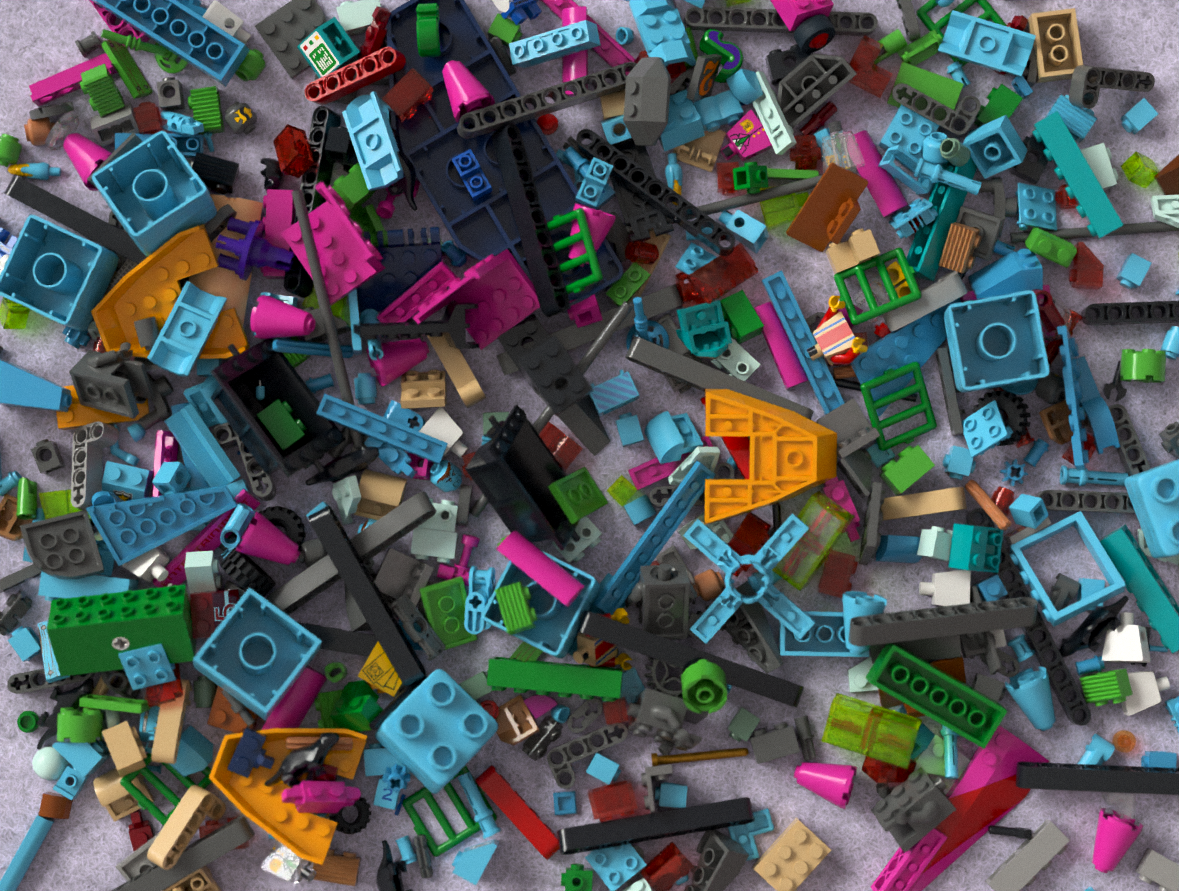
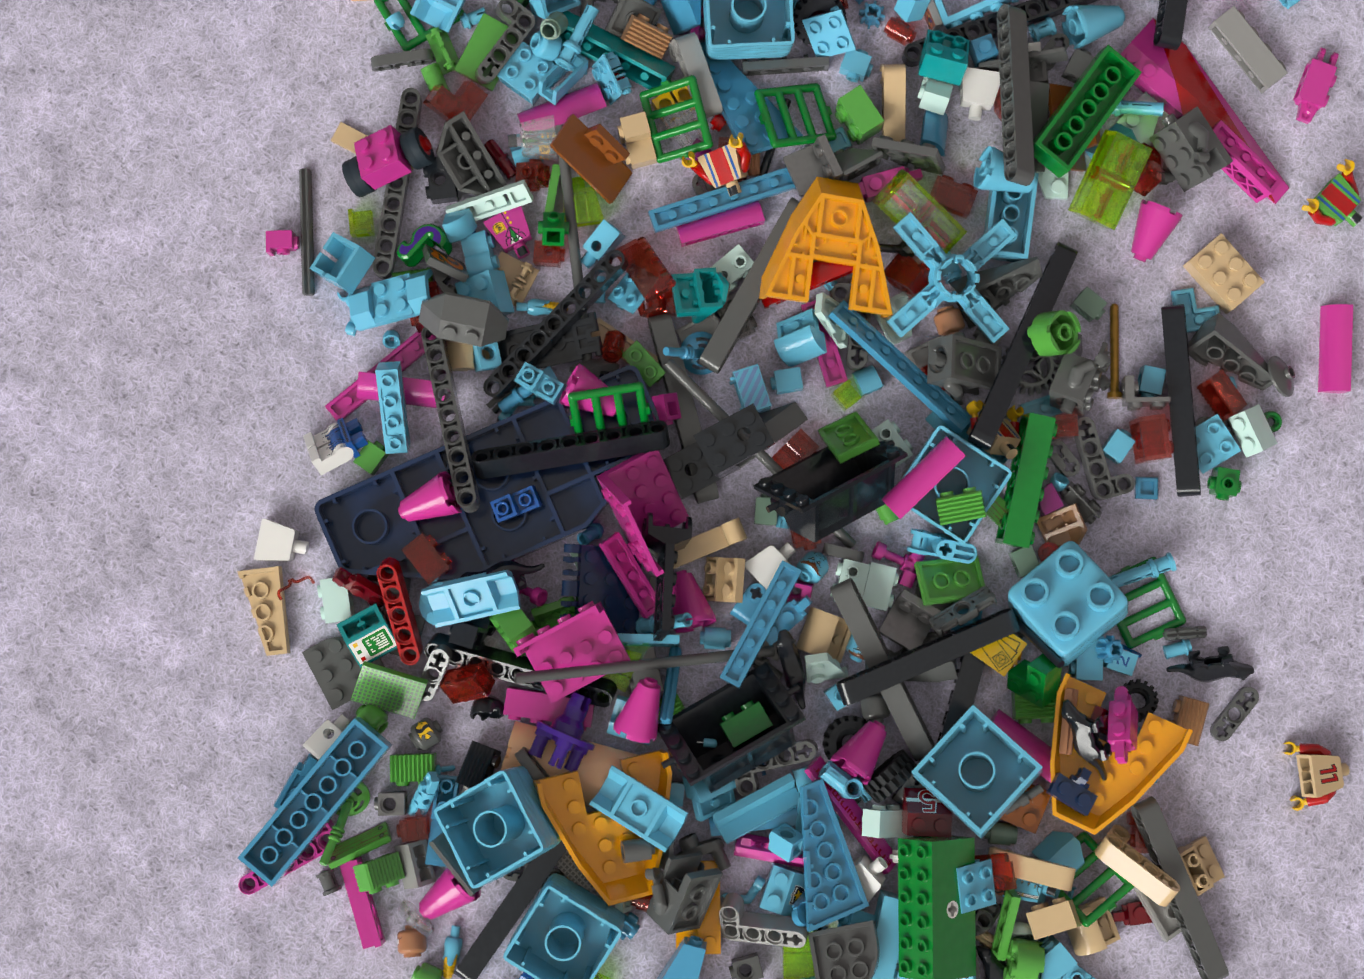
camera: 85 degrees left, 0 degrees up
(51, 110) = (393, 927): dark grey tile -> none
(136, 431) = (731, 874): medium azure hinge -> none
(279, 77) = (389, 689): none -> bright green tile
(287, 865) = (1183, 769): clear torso -> none
(306, 123) = (440, 667): none -> beam
(320, 383) = (704, 683): dark azure pin -> none
(339, 677) = (991, 702): bright green hinge -> none
(428, 30) = (363, 529): green animal -> none
(474, 860) = (1196, 581): medium azure slope -> none
(502, 55) = (395, 461): dark grey axle -> none
(518, 812) = (1152, 534): red beam -> none
(548, 124) = (471, 424): red plate -> none
(741, 317) = (689, 256): green brick -> none
(774, 742) = (1110, 276): dark grey brick -> none
(805, 738) = (1107, 246): dark grey axle -> none
(988, 505) = (902, 41): nougat axle -> none
(1018, 832) = (1218, 56): black bar -> none

